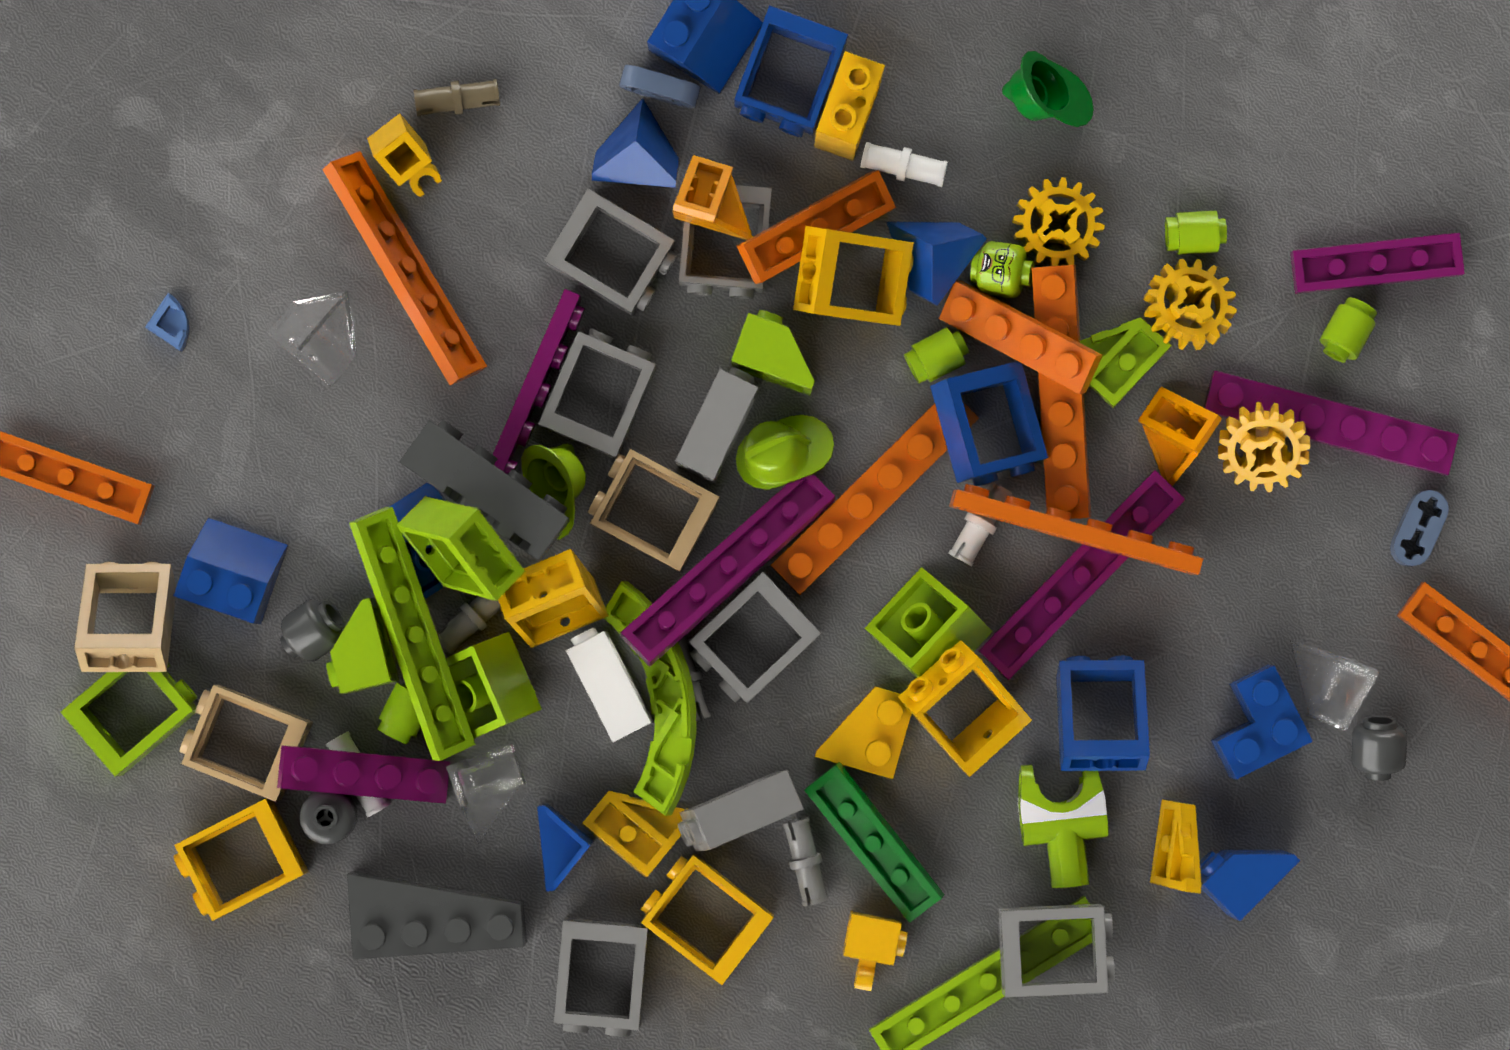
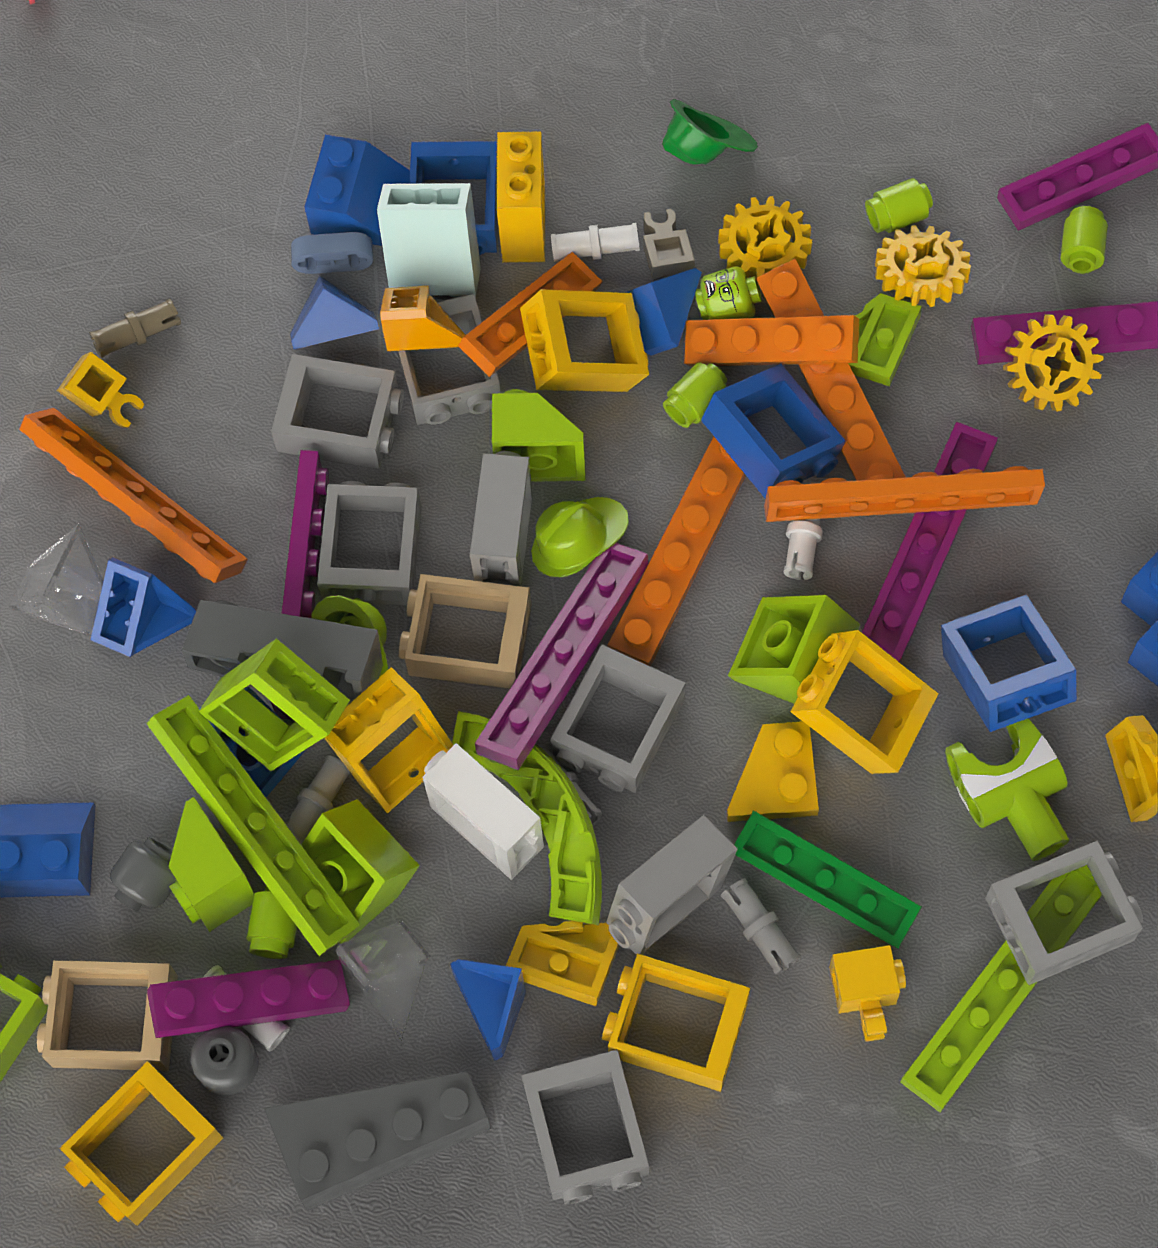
camera: 15 degrees left, 20 degrees down
(374, 385) = (137, 610): none -> blue slope
(749, 122) = (430, 237): none -> light aqua brick
(967, 197) = (665, 247): none -> dark tan plate
(1176, 431) = (961, 380): light orange slope -> none

